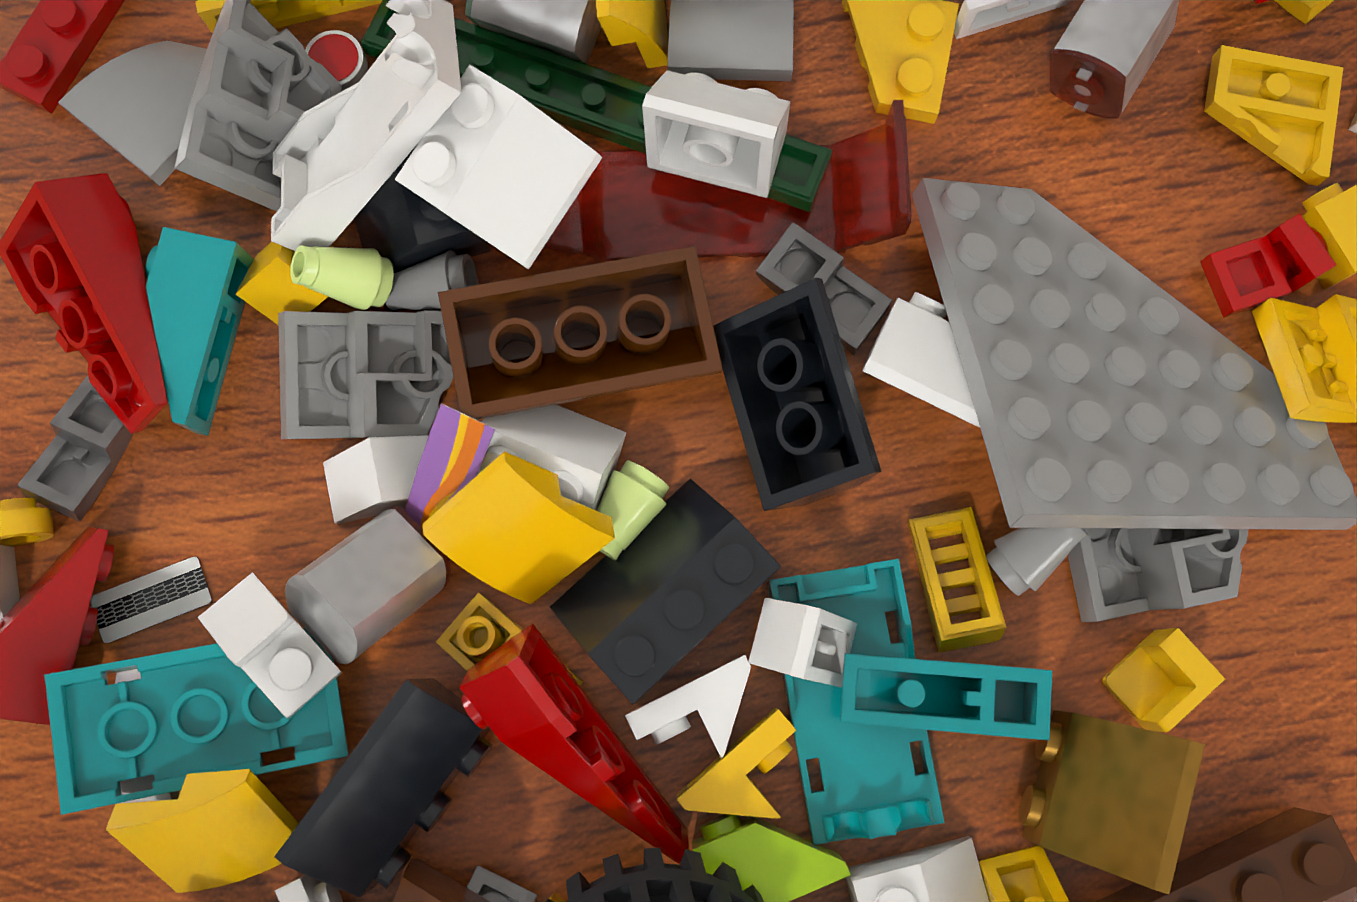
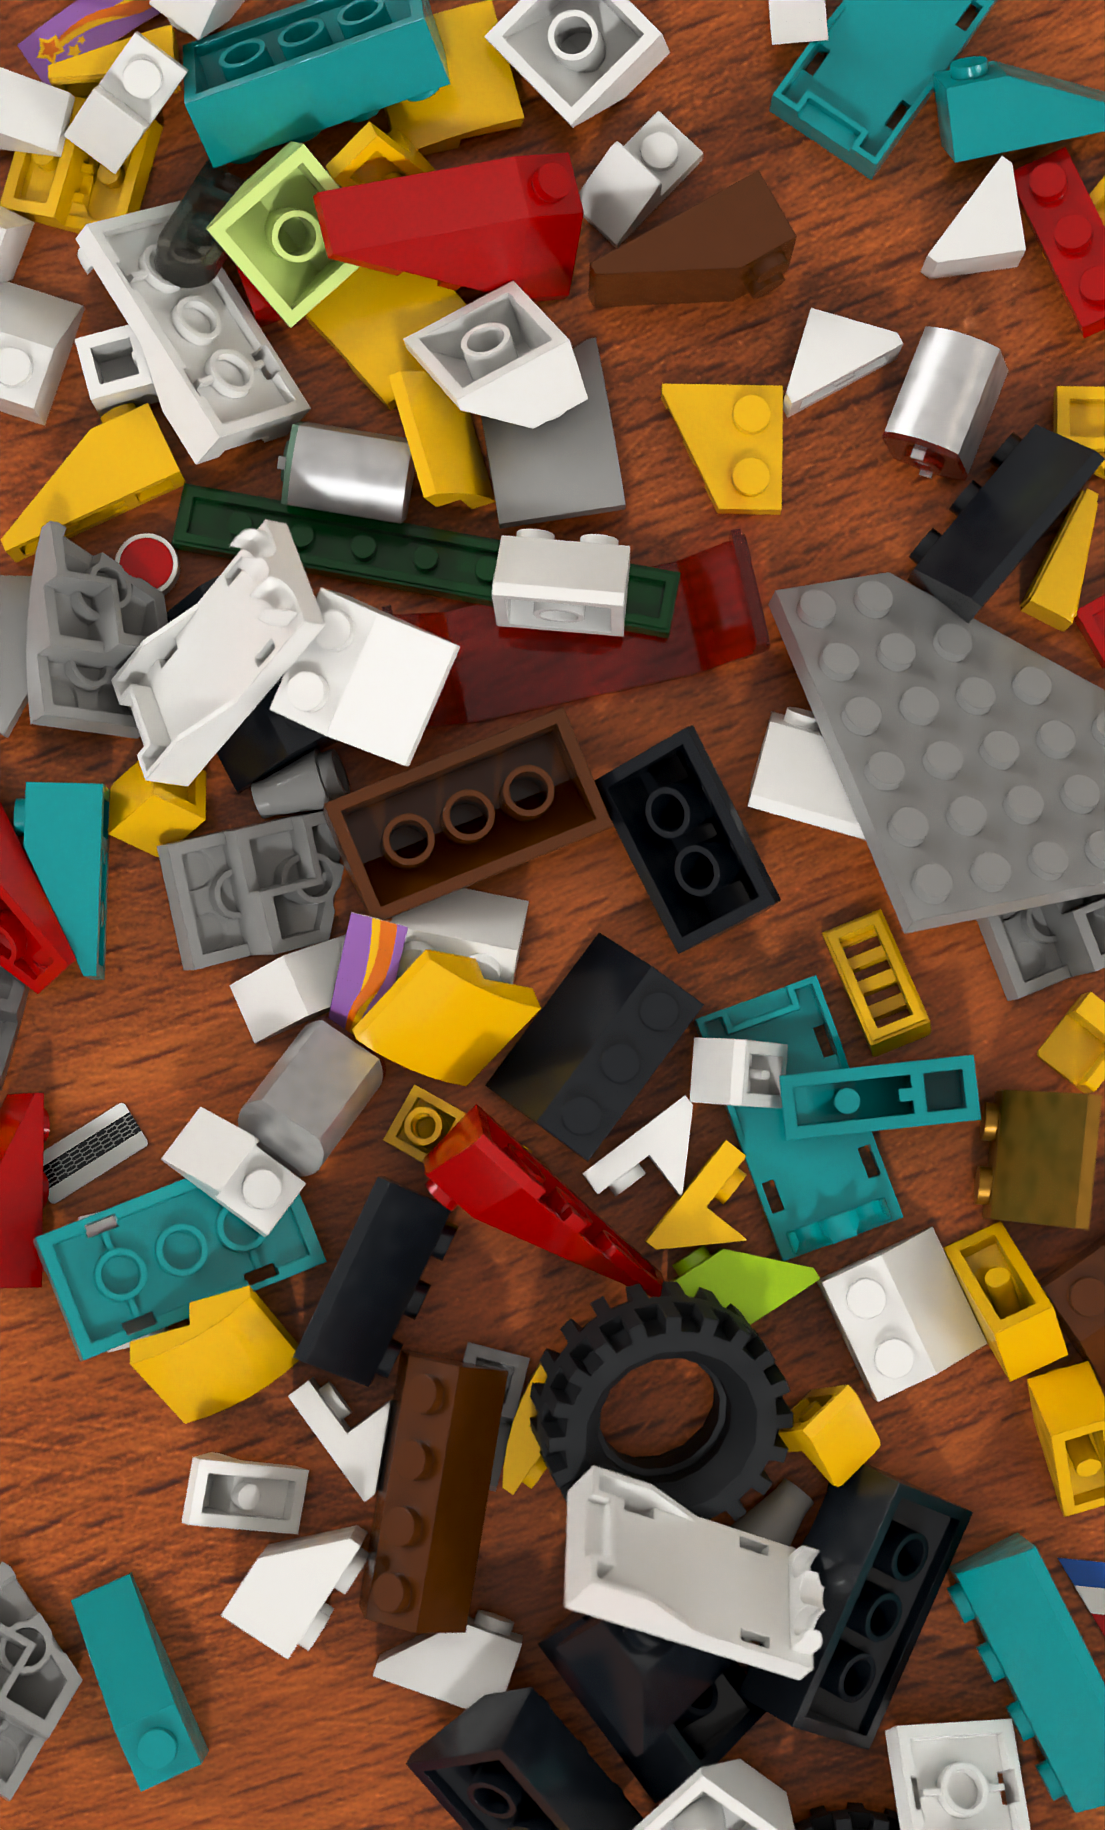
camera: 15 degrees left, 5 degrees up
(345, 274) = (220, 796): yellowish green cone -> none
(632, 501) = (547, 966): yellowish green cone -> none
(853, 301) = (675, 699): flat silver slope -> none
(1031, 555) = (942, 951): light grey cone -> none
(1157, 153) = (1001, 519): none -> black slope
(1197, 225) = (1059, 580): none -> yellow slope

